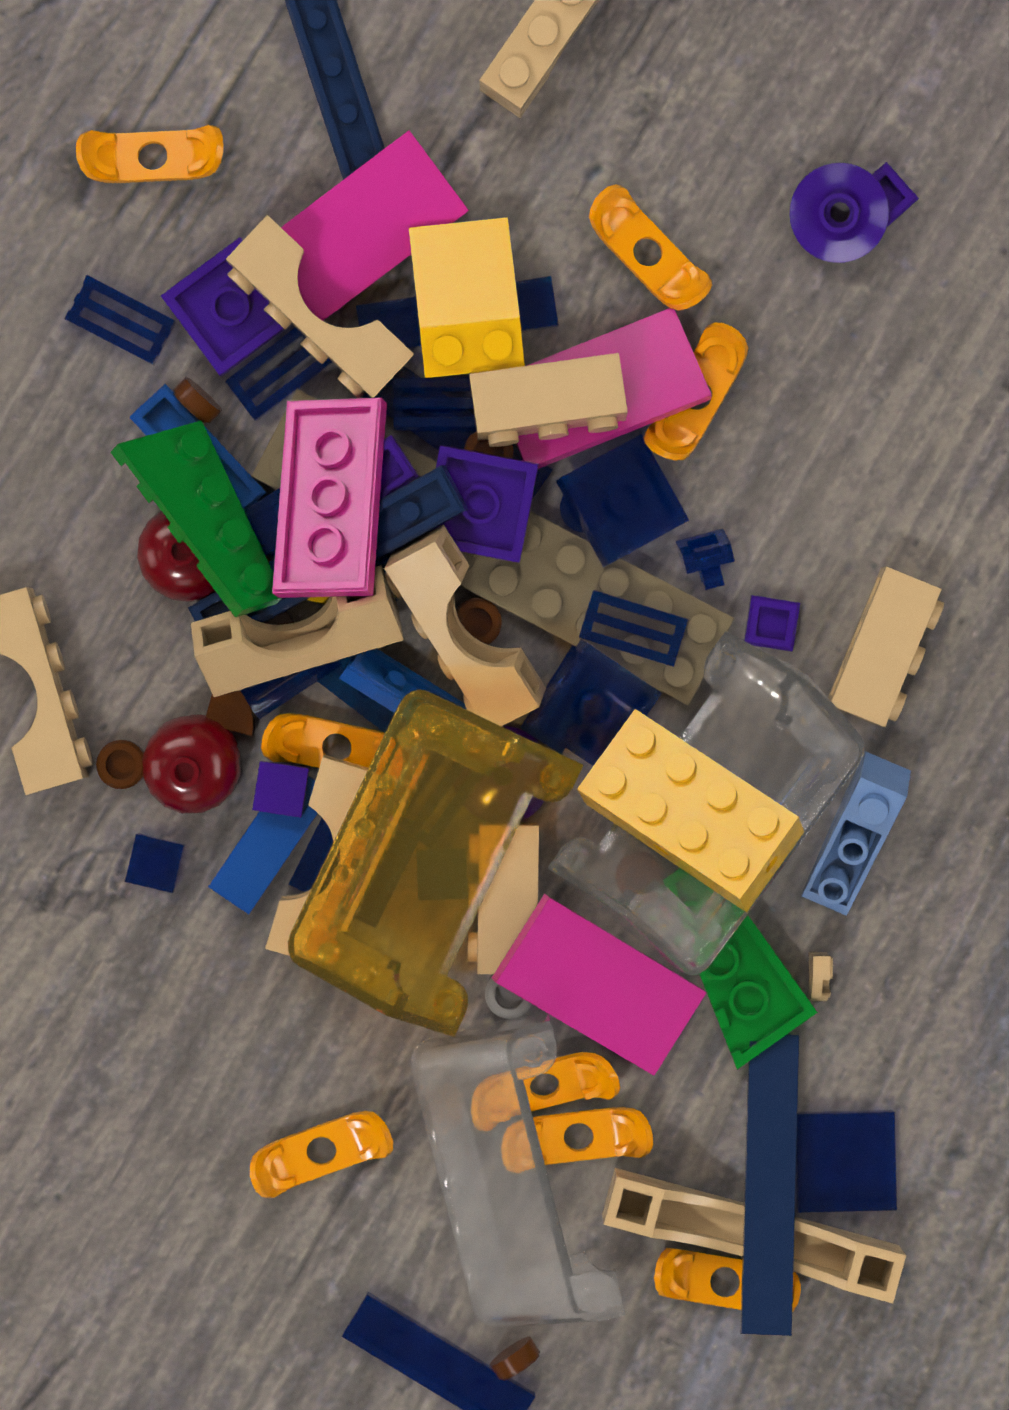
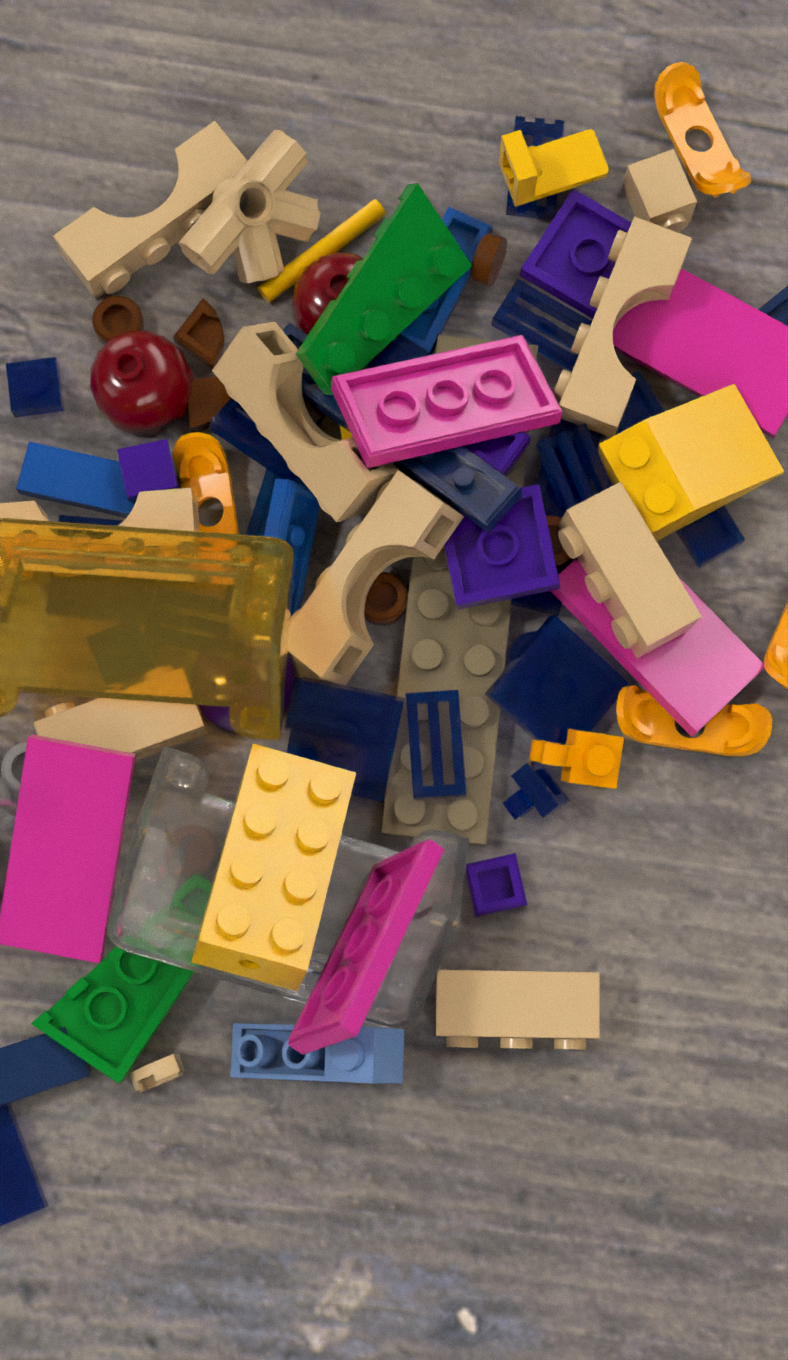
camera: 70 degrees right, 10 degrees down
(76, 585) = (269, 212): none -> tan piece
(124, 550) = (327, 245): none -> yellow bar
(133, 306) = (550, 167): none -> yellow bracket
(164, 690) = (202, 334): none -> reddish brown tile
(197, 217) = (660, 191): none -> tan brick
(695, 502) = (585, 757): none -> light orange plate
(794, 759) = (365, 948): none -> dark pink tile

